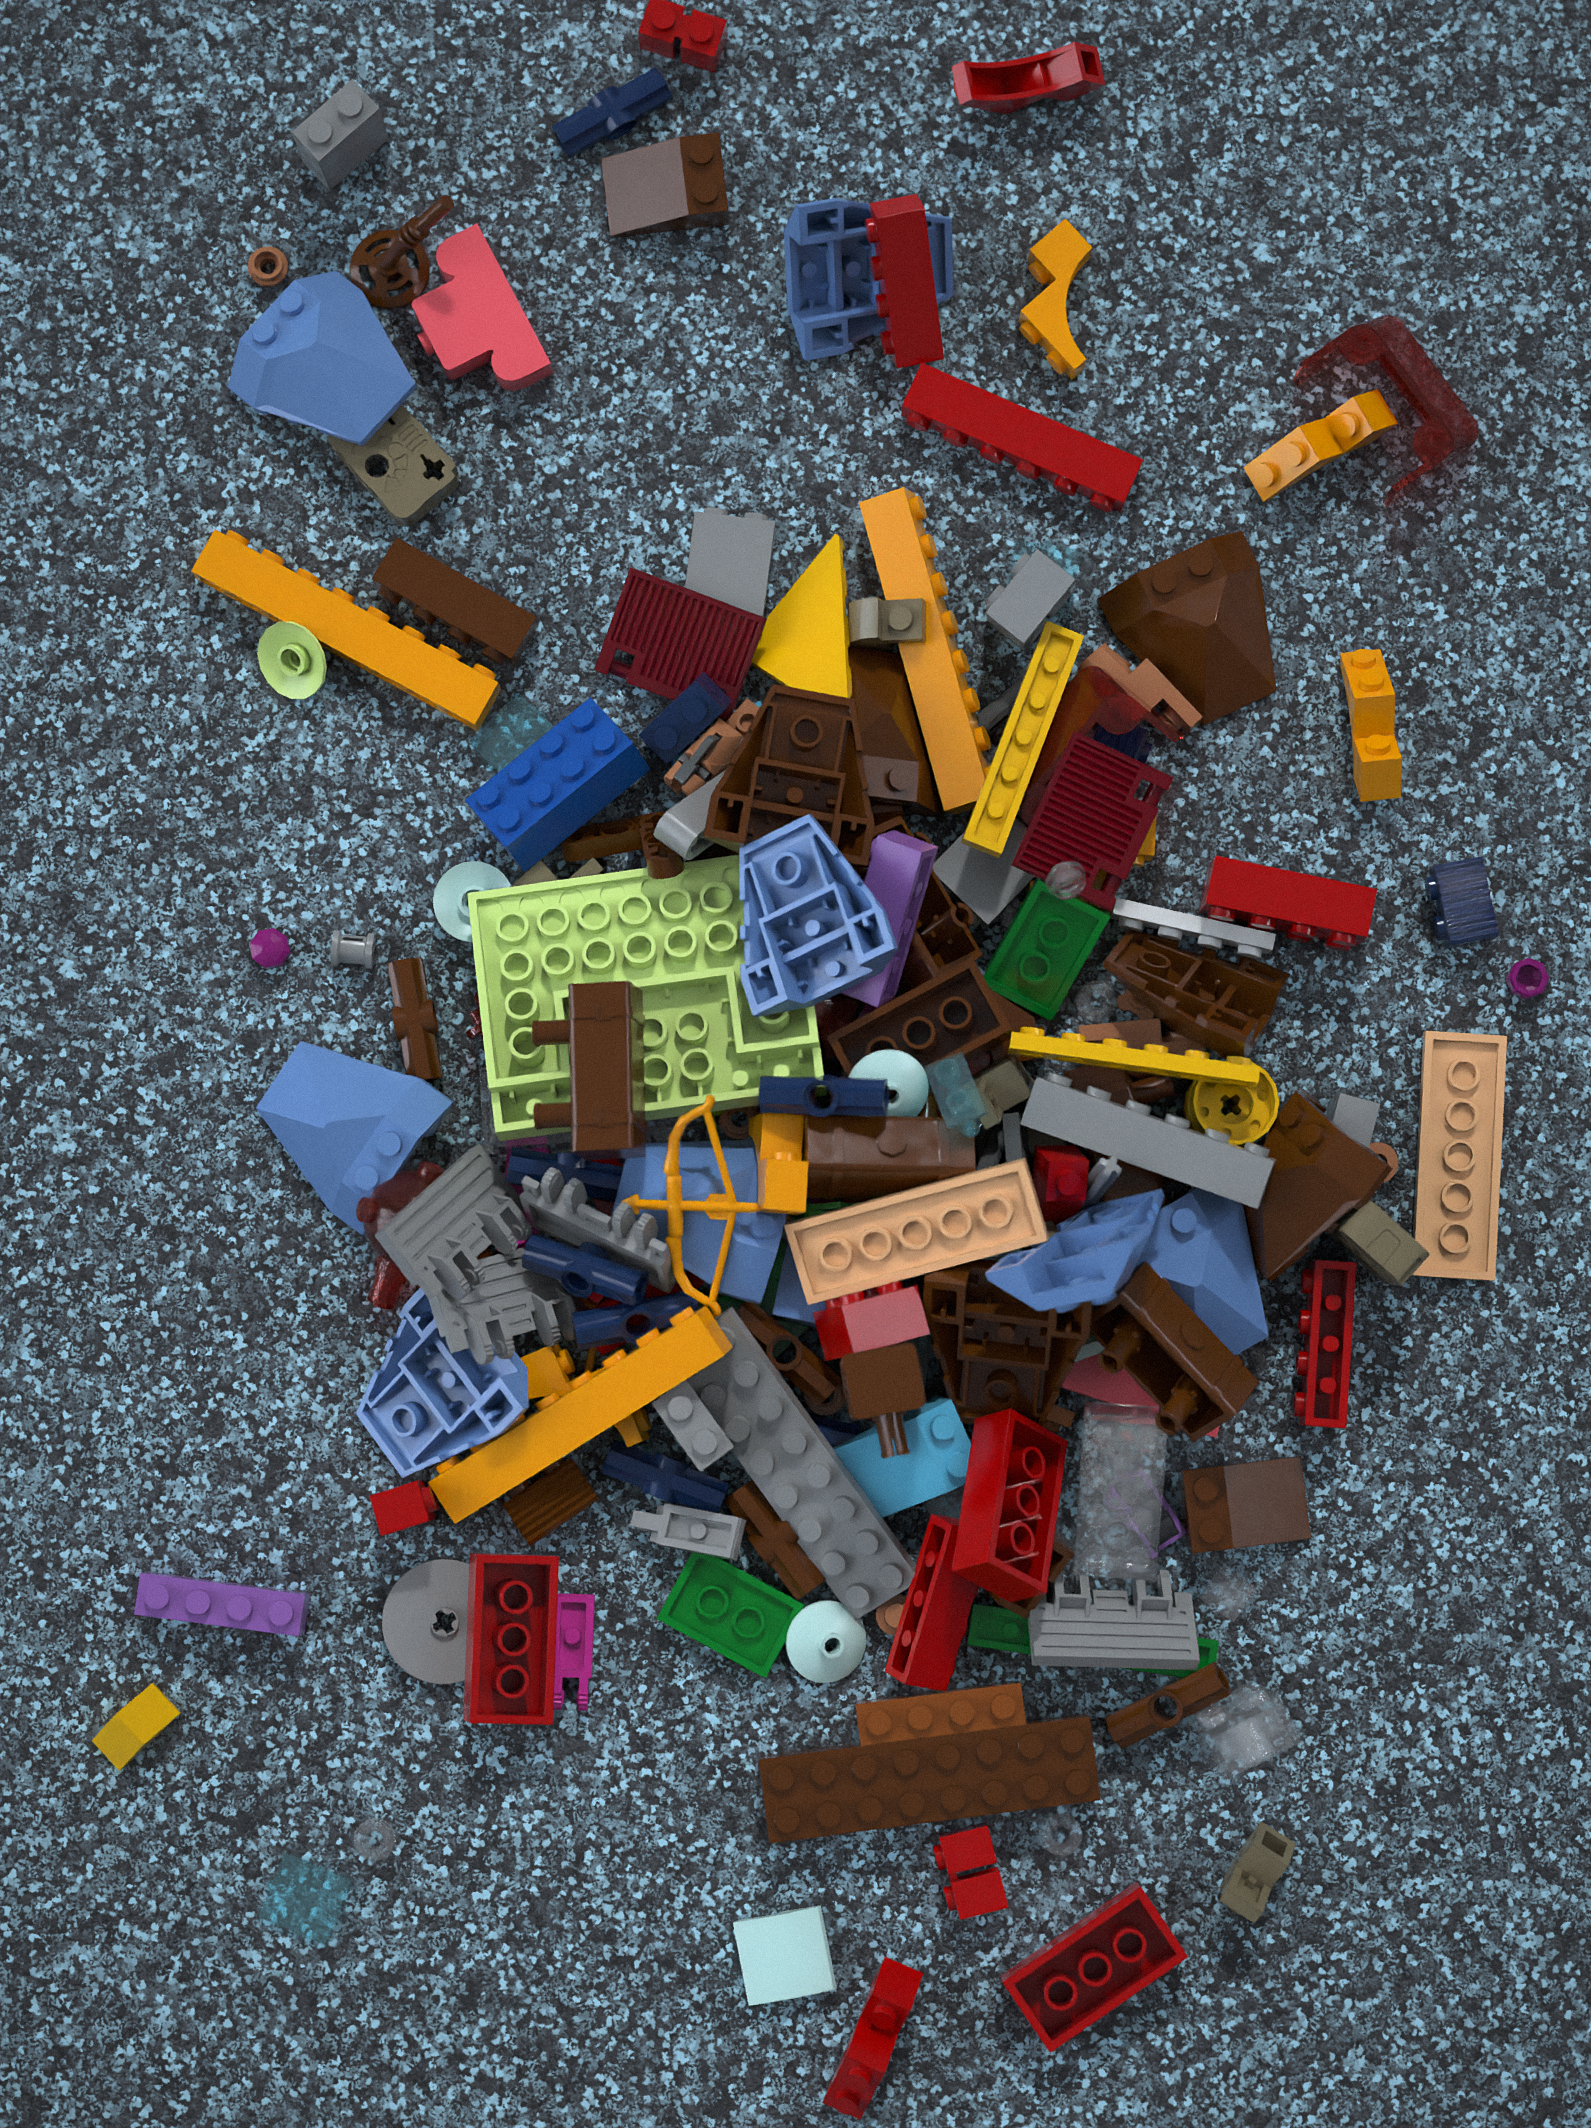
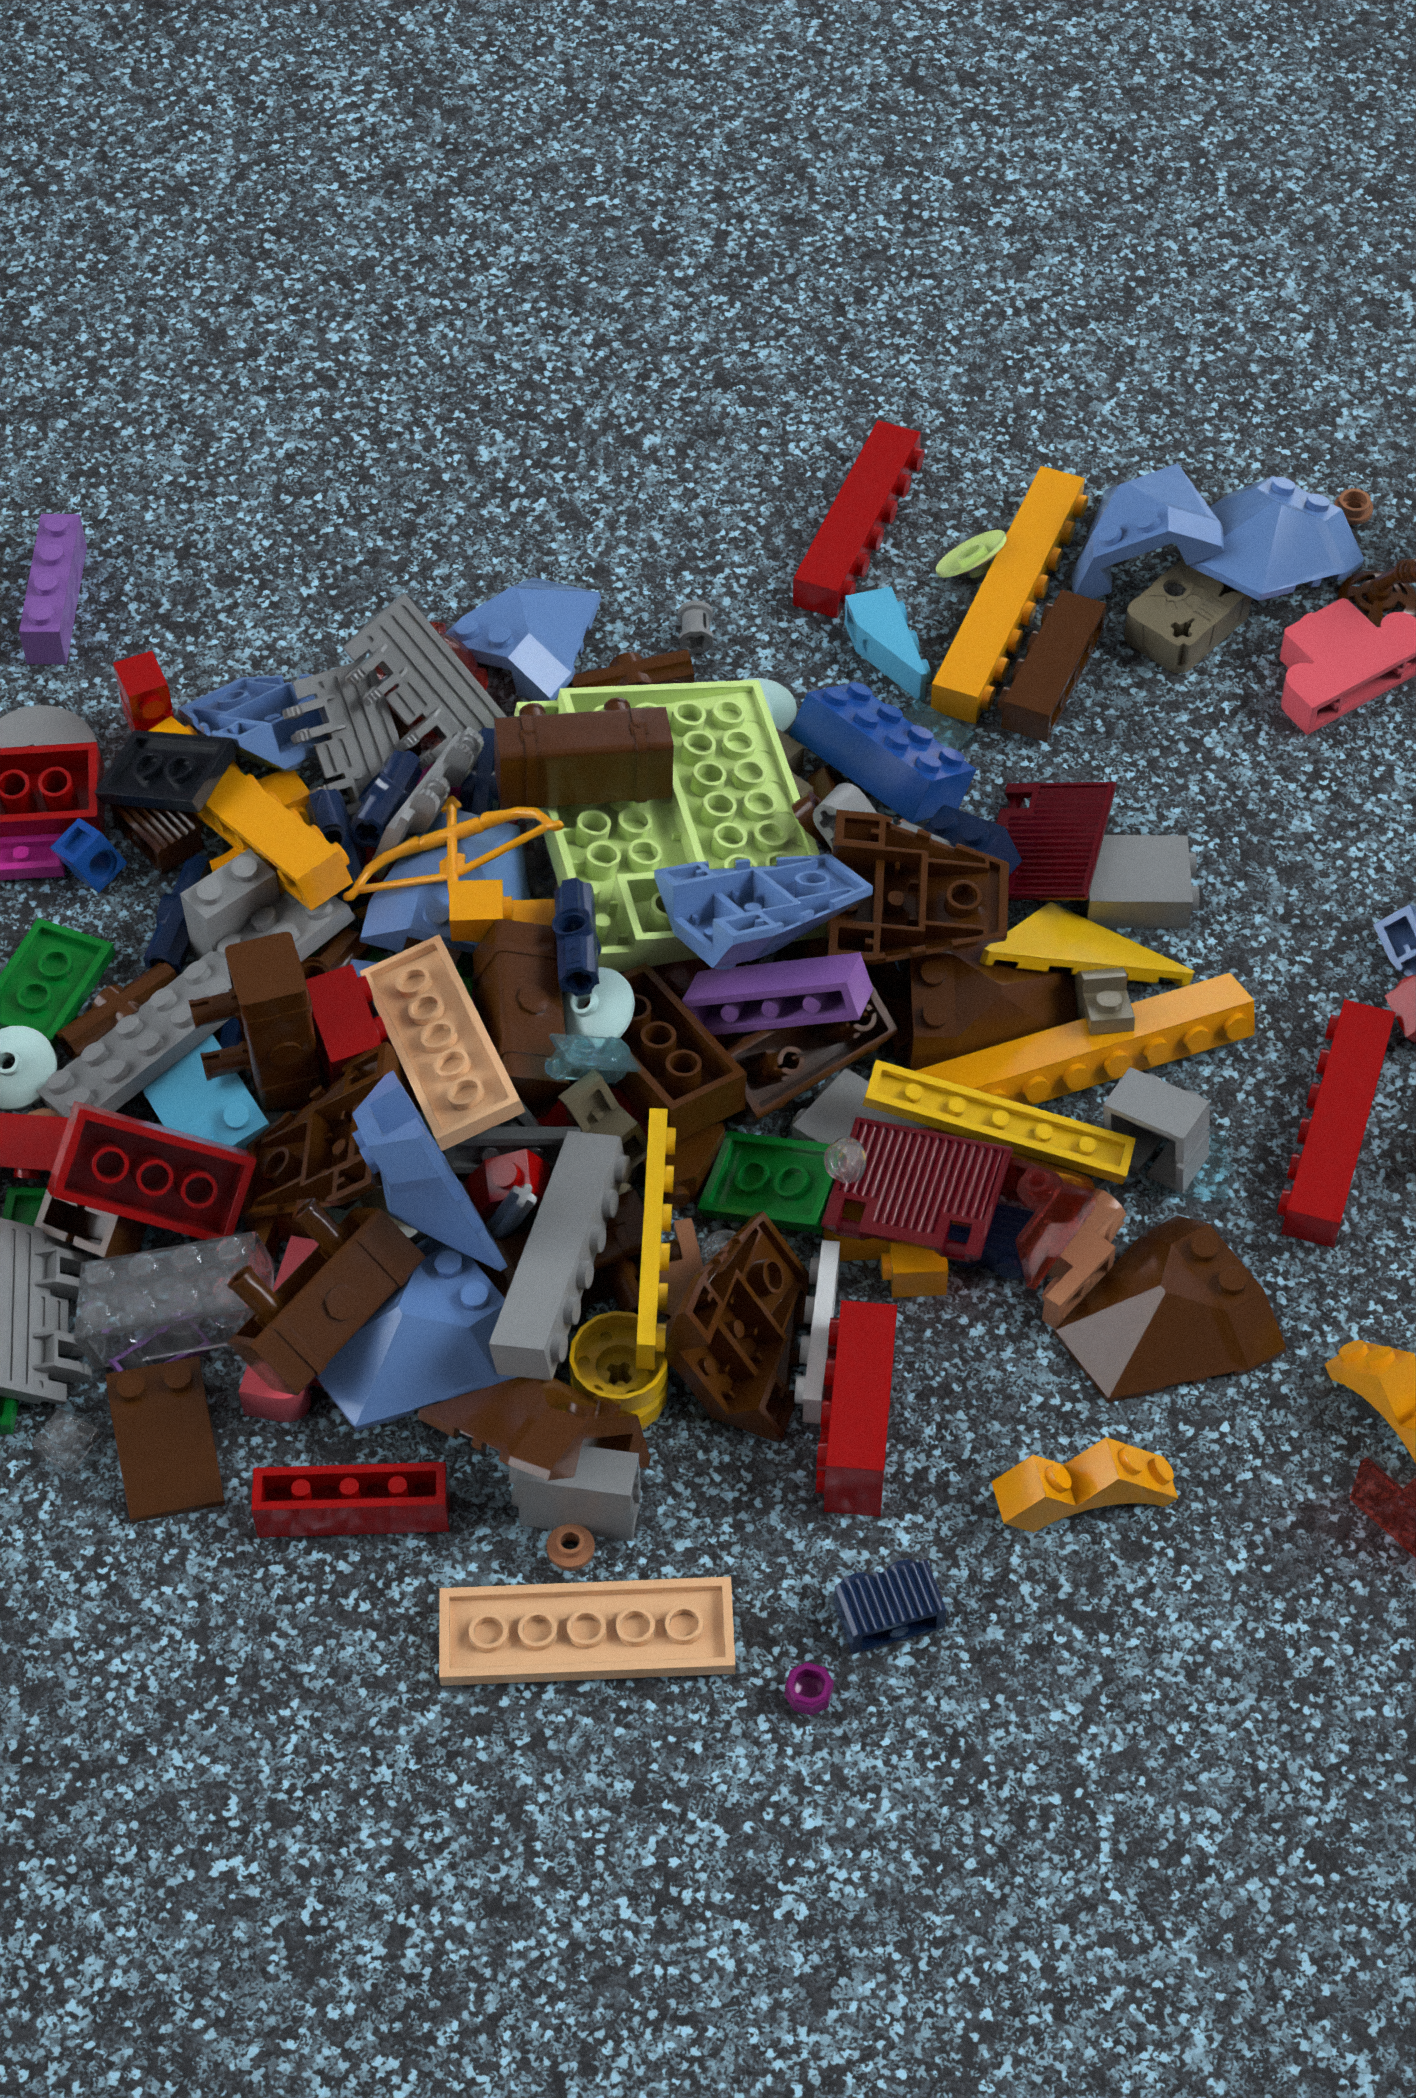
camera: 85 degrees right, 30 degrees down
(225, 767) = (858, 519): none -> red brick
(270, 948) = (689, 572): magenta tile -> none
(292, 480) = (1142, 518): none -> medium blue wedge
(388, 764) = (882, 637): none -> medium azure slope
(530, 1483) = (166, 771): none -> black plate
(591, 1567) = (88, 855): none -> blue brick
(692, 1530) = (126, 935): light grey hinge -> none
(1379, 1244) = (470, 1518): dark tan axle -> none

